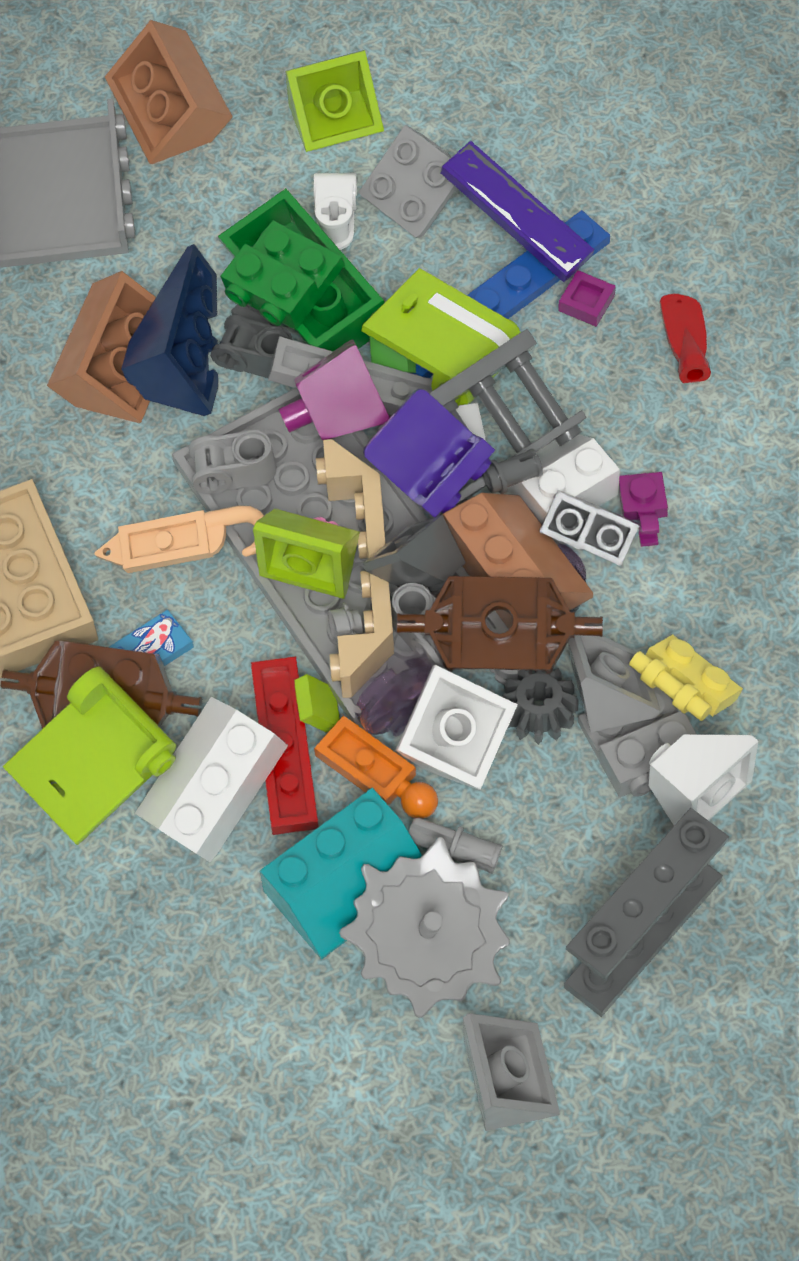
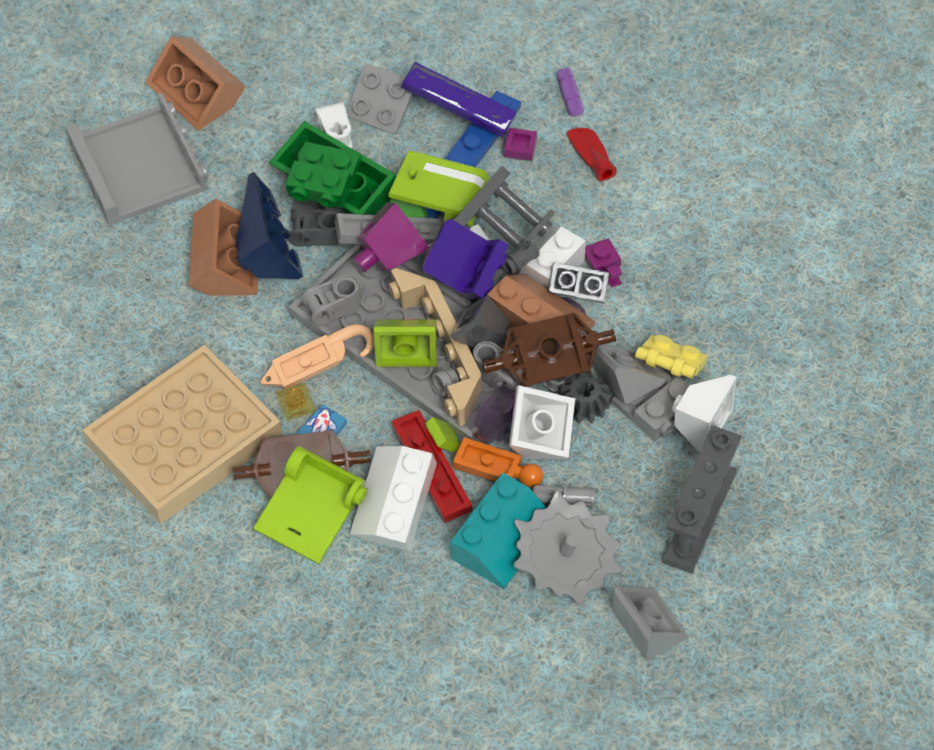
camera: 20 degrees left, 5 degrees down
(133, 595) = (295, 402): none -> clear yellow plate
(333, 101) = (308, 60): lime slope -> none
(687, 238) = (570, 92): none -> medium lavender axle

